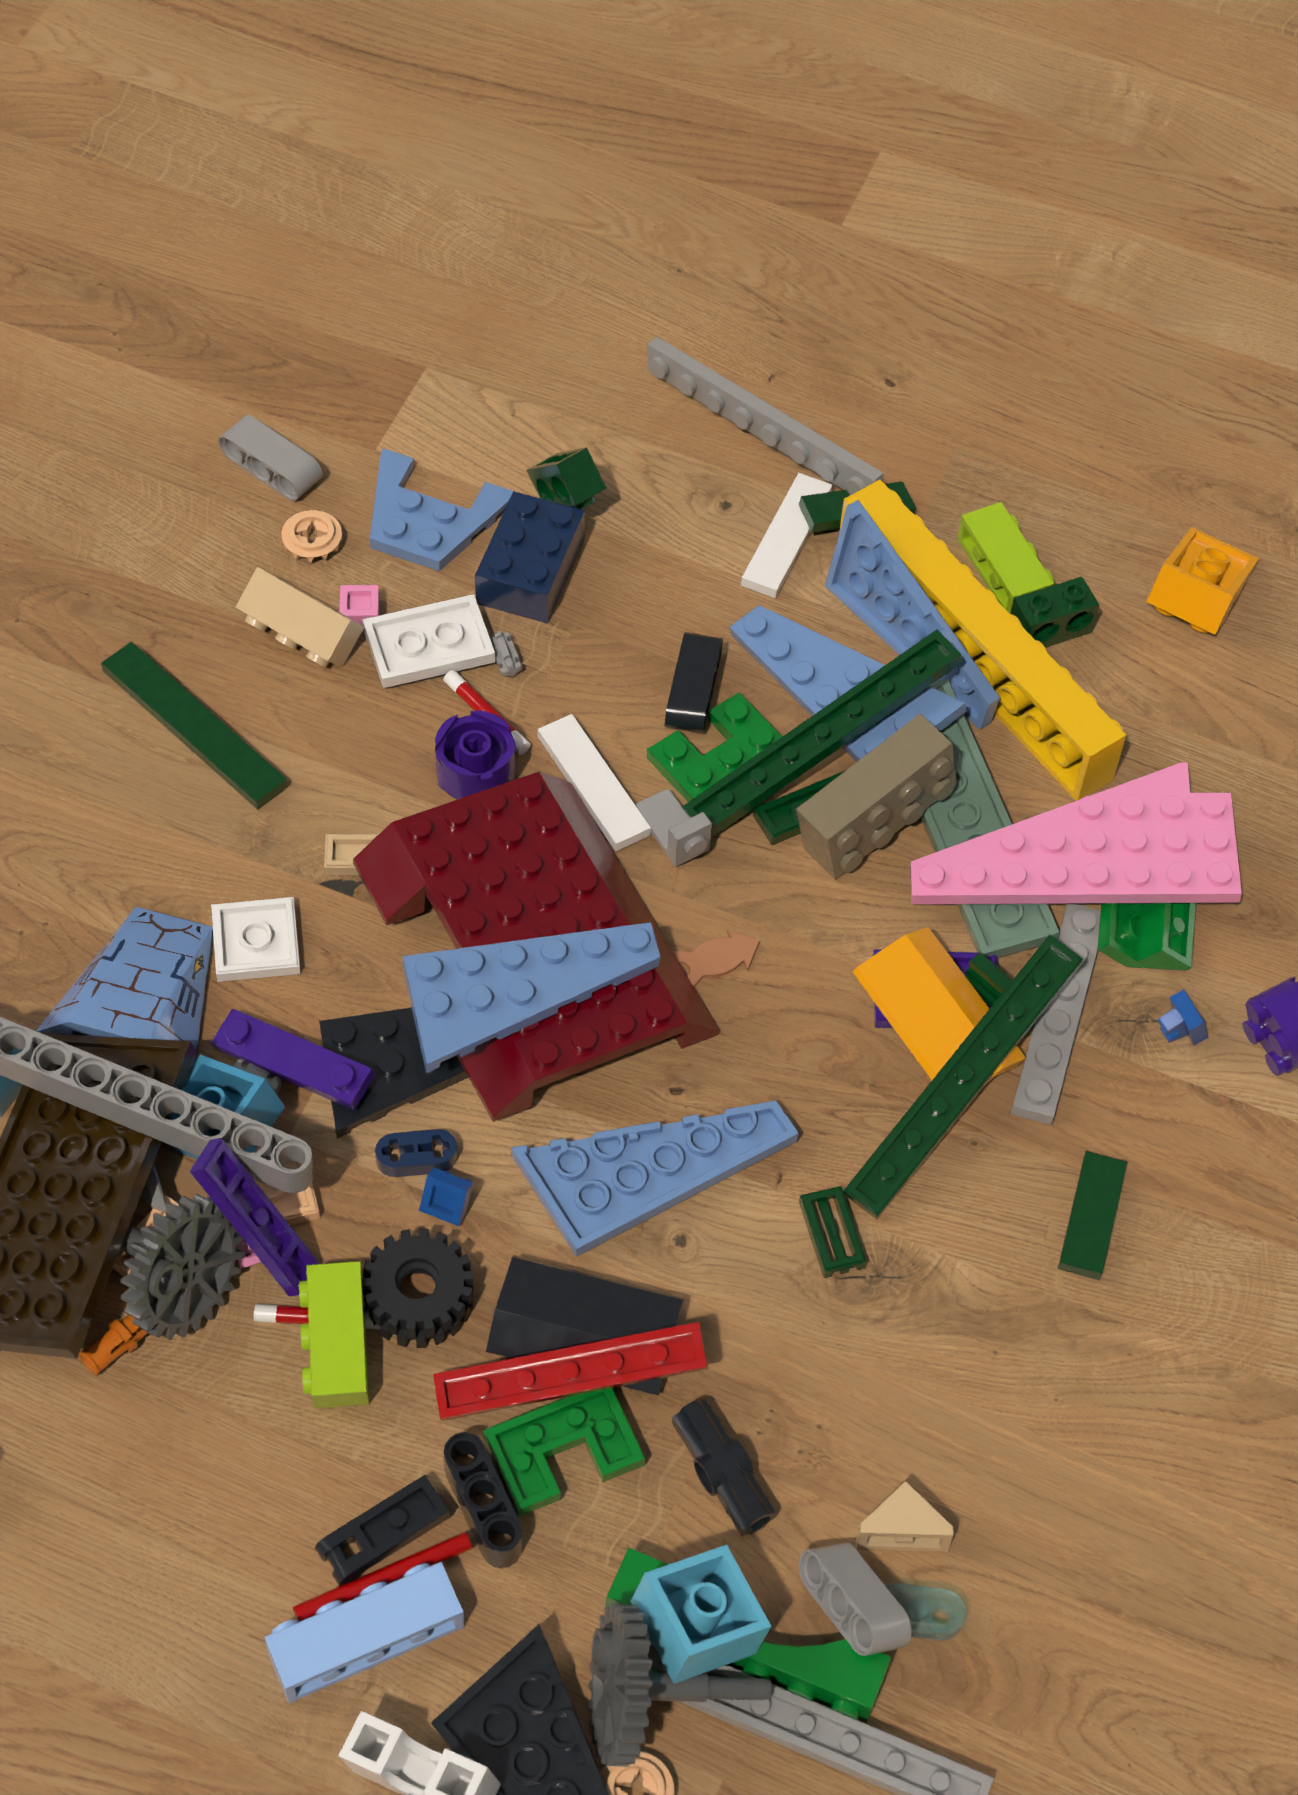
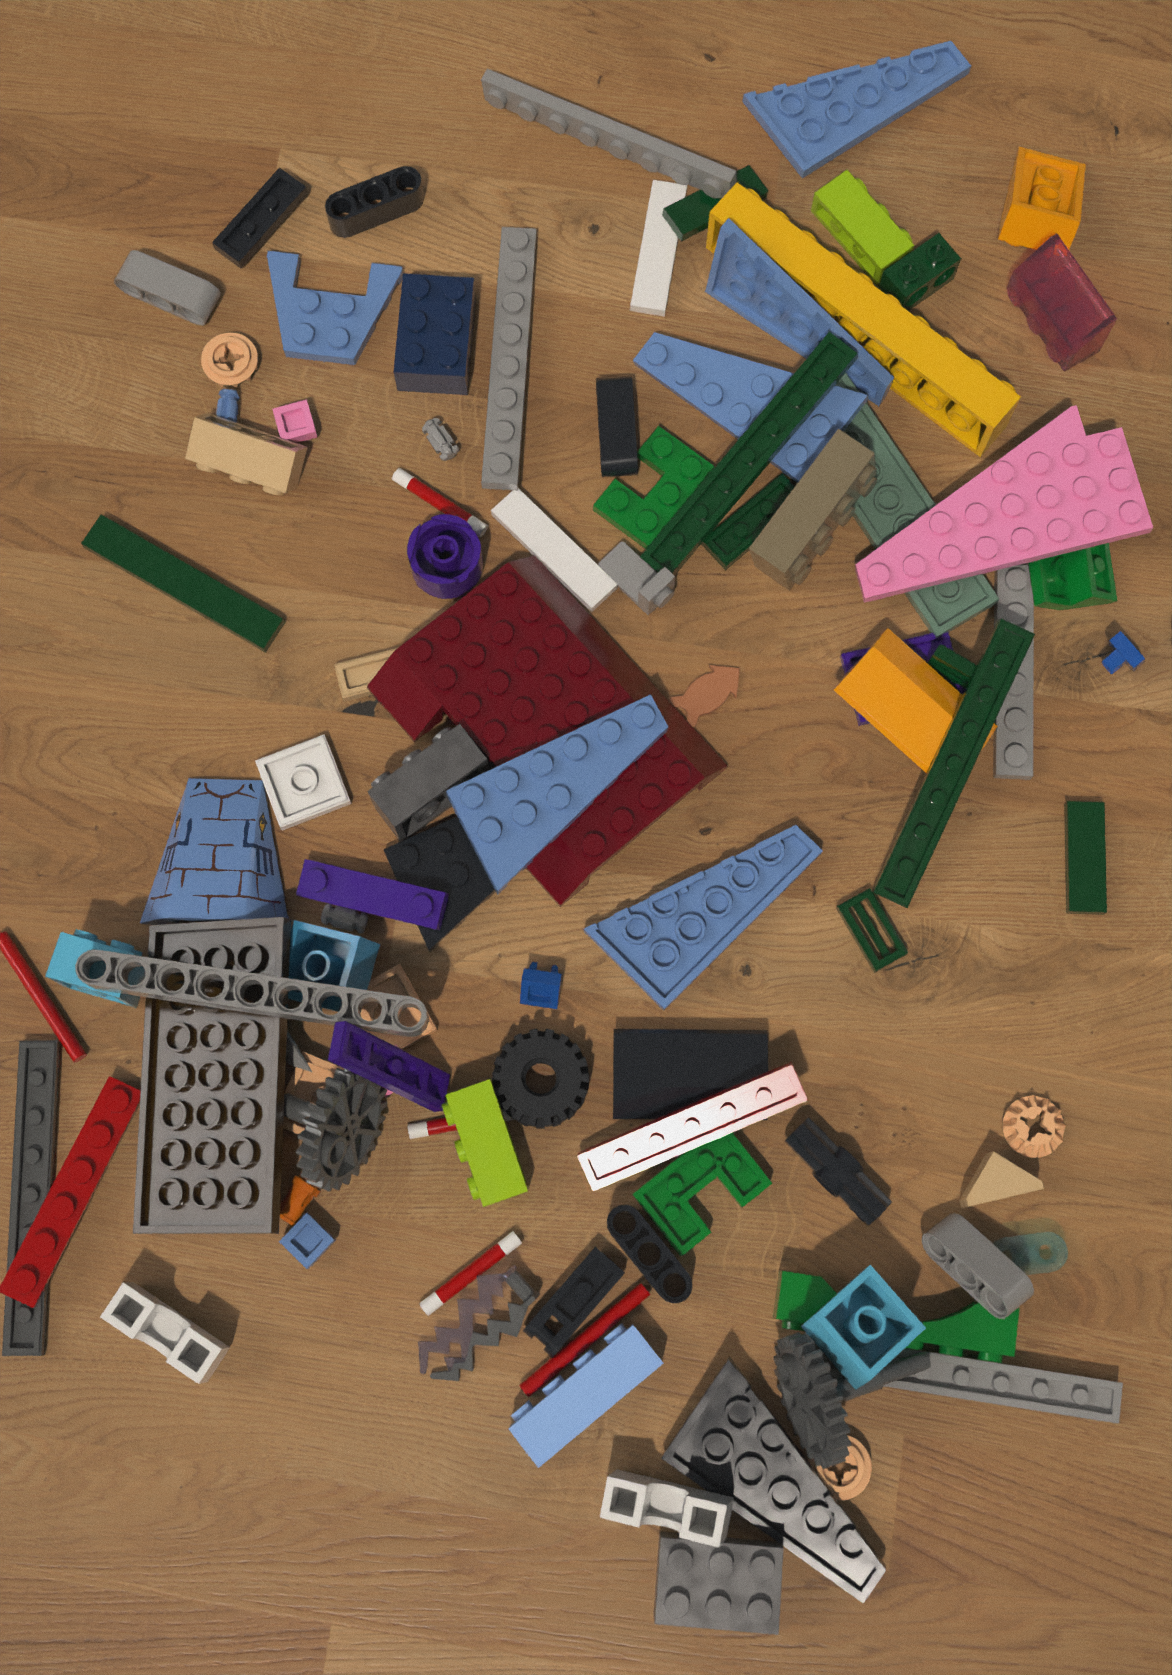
camera: 10 degrees left, 20 degrees up
(105, 1391) = (307, 1241): none -> medium blue plate
(249, 1535) = (465, 1334): none -> piece
(275, 1474) = (470, 1273): none -> red bar
(296, 572) = (227, 404): none -> medium blue piece
(365, 964) = (418, 789): none -> flat silver brick
(385, 419) = (260, 218): none -> black plate
(415, 1152) = (505, 959): dark blue beam -> none
(428, 641) = (368, 444): white plate -> none
(506, 429) = (383, 187): none -> black beam
(568, 478) = (448, 247): dark green brick -> none
(599, 599) = (509, 359): none -> light grey plate
(963, 1498) = (1017, 1131): none -> light nougat gear
(1022, 452) = (845, 106): none -> medium blue wing
(1197, 672) = (1061, 304): none -> clear pink slope

